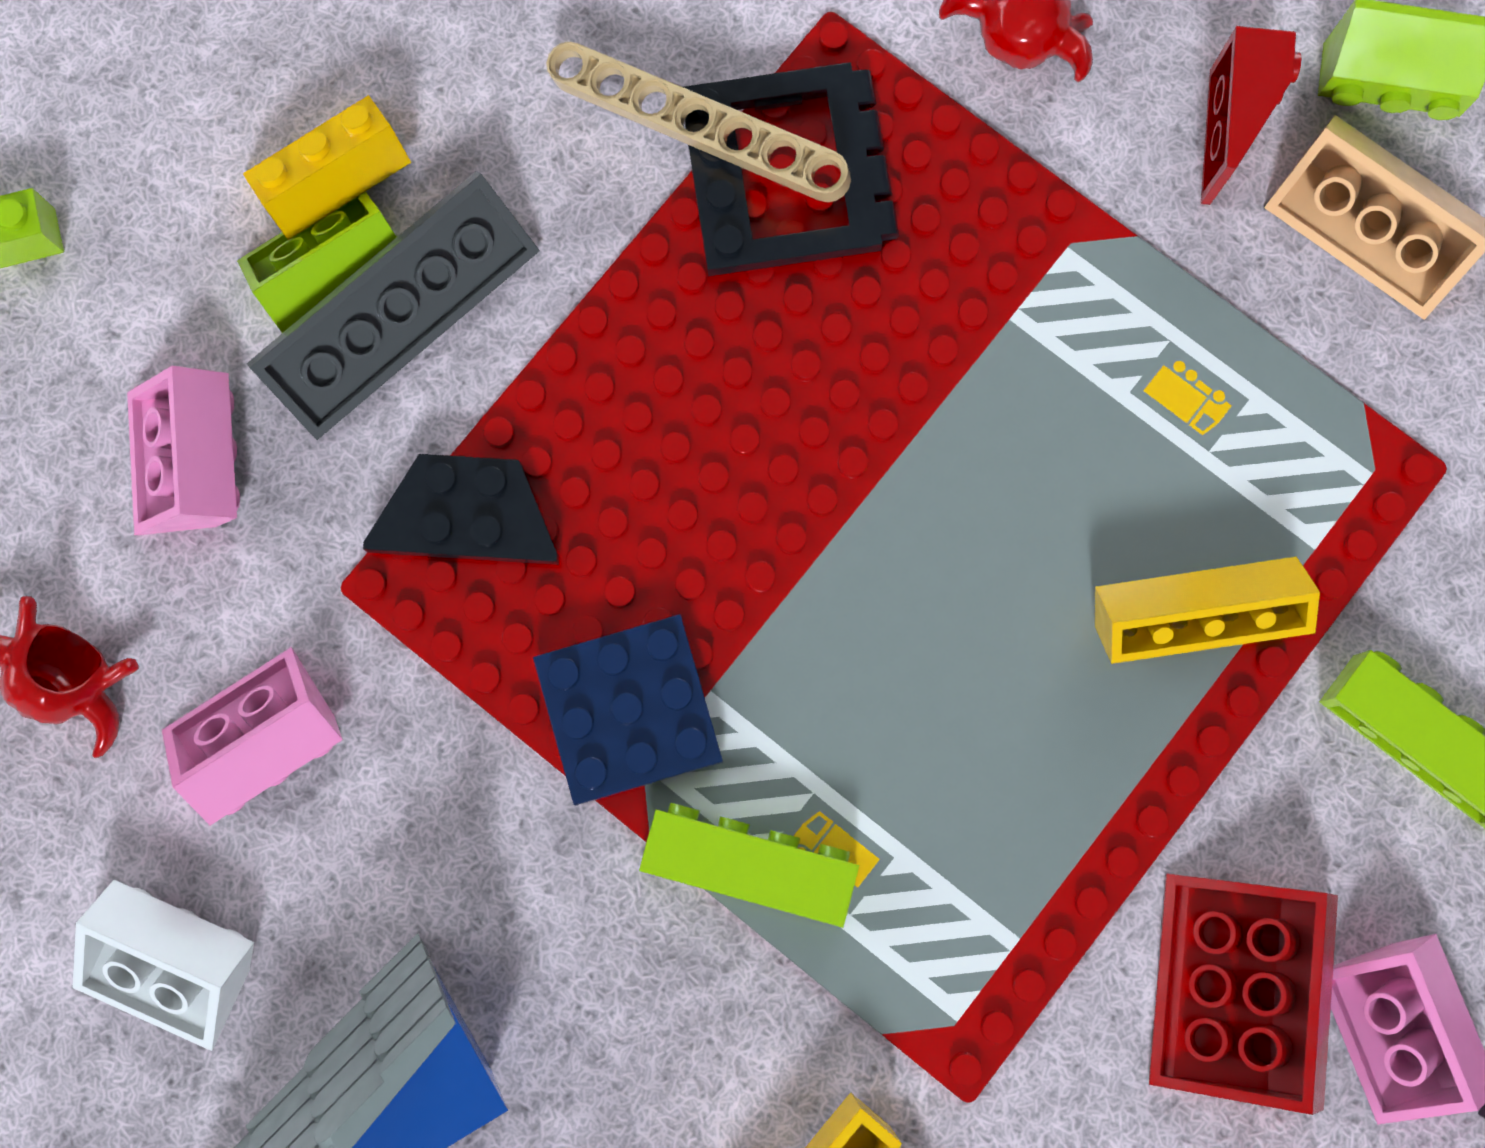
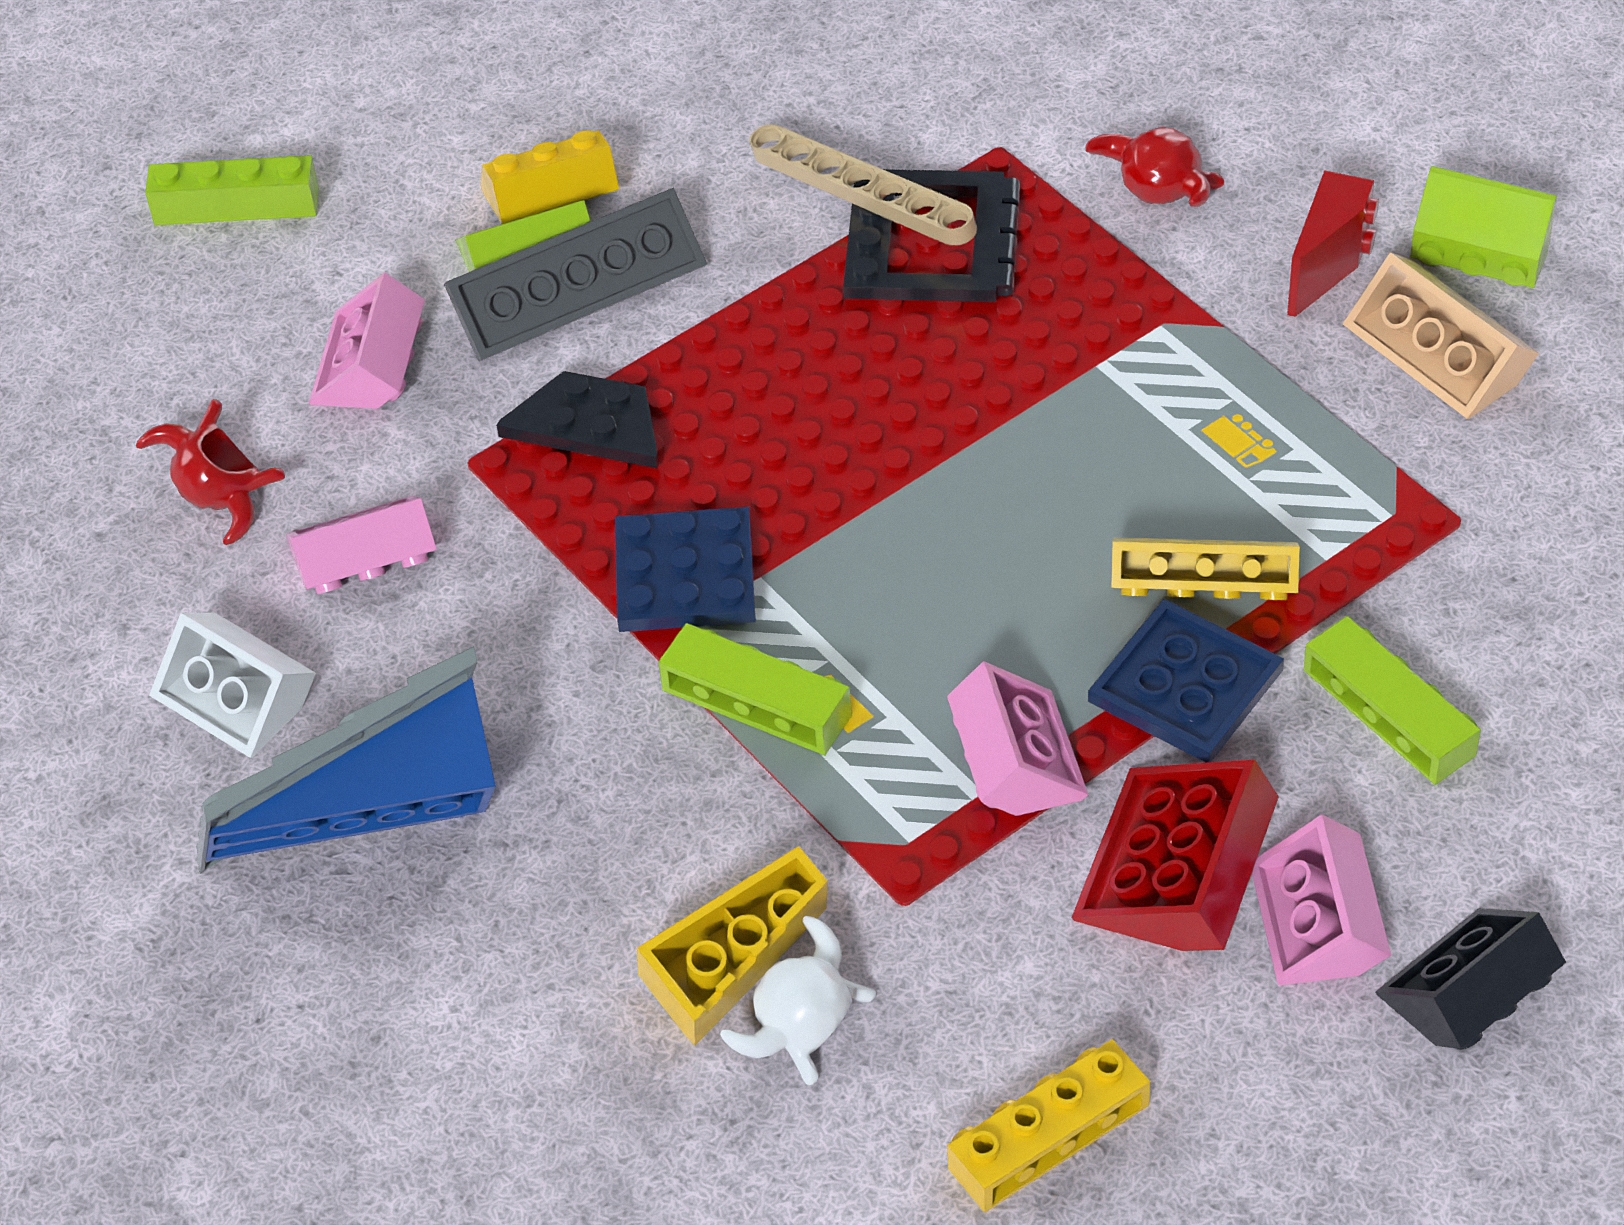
camera: 15 degrees right, 30 degrees down
(1052, 893) = (1015, 742): none -> bright pink slope
(1214, 766) = (1186, 681): none -> dark blue plate

